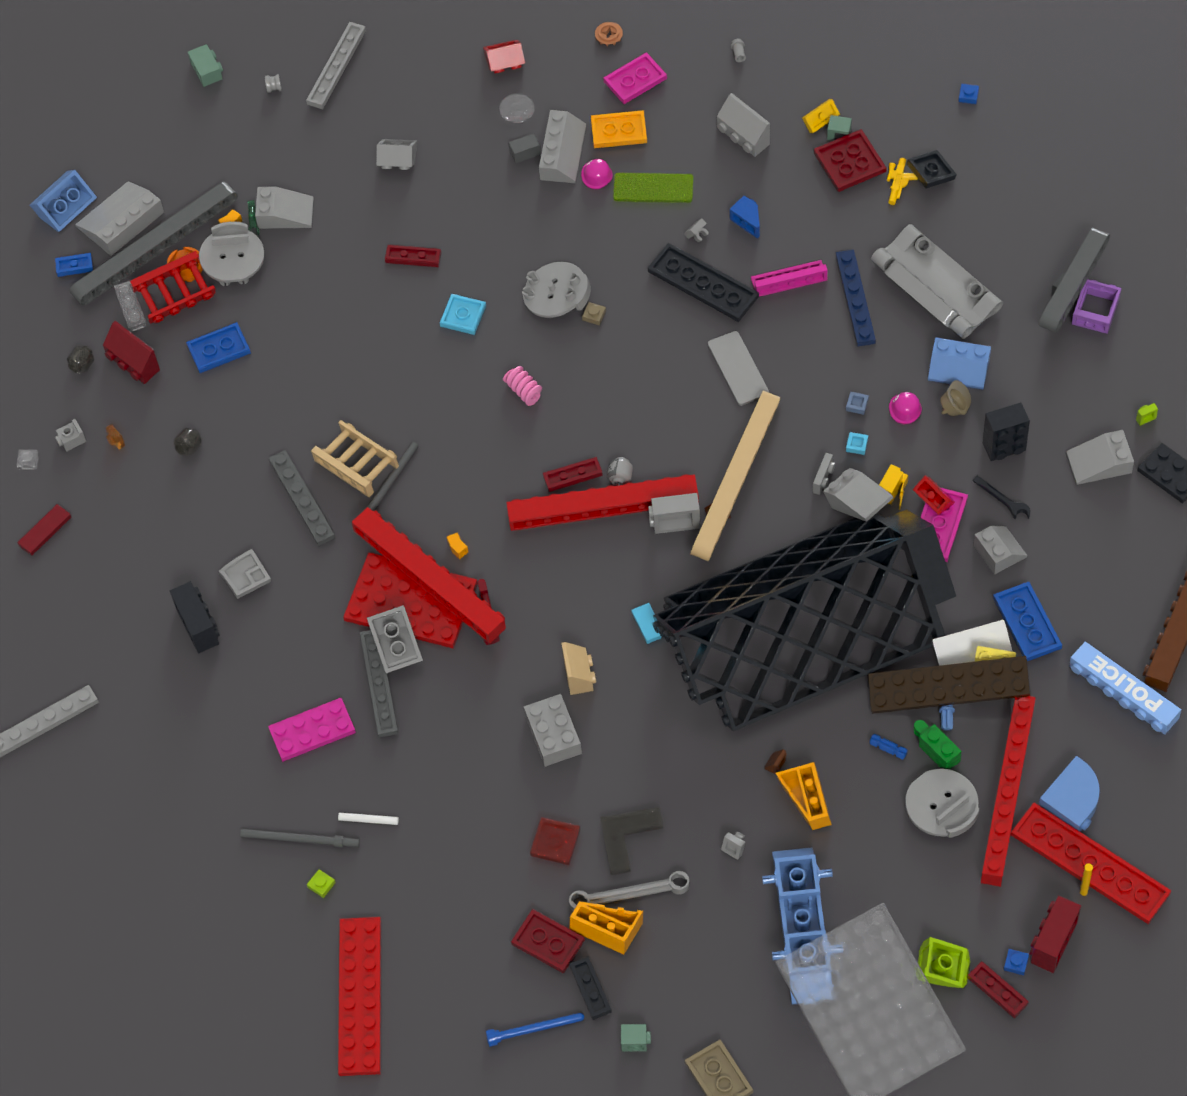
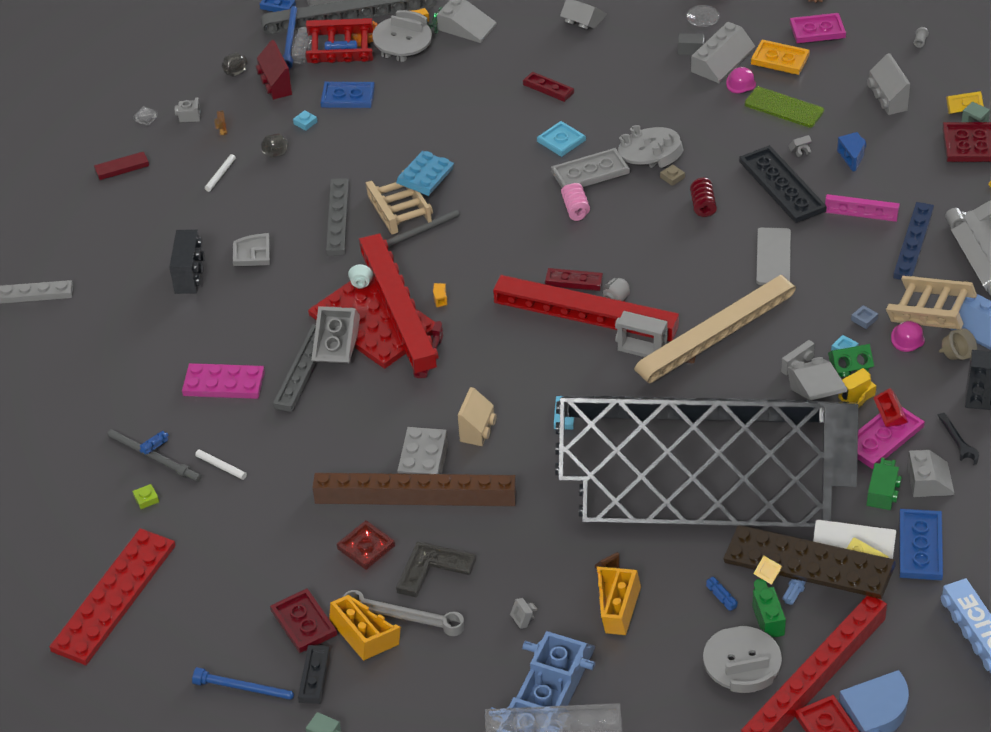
camera: 25 degrees right, 15 degrees down
(117, 301) = (288, 46): none -> blue piece
(150, 495) = (220, 172): none -> white bar
(180, 294) = (340, 45): none -> blue axle
(195, 397) = (305, 120): none -> medium azure plate
(293, 826) = (154, 442): none -> blue axle
(362, 415) = (425, 173): none -> dark azure plate
(376, 562) = (360, 275): none -> light aqua cone
(513, 341) = (591, 169): none -> light grey plate
(565, 765) = (414, 489): none -> reddish brown brick
(640, 330) = (703, 197): none -> dark red piece
(871, 453) = (850, 356): none -> green brick
(920, 709) = (767, 570): none -> yellow plate
(922, 380) = (931, 316): none -> tan fence
(966, 575) = (883, 485): none -> green brick

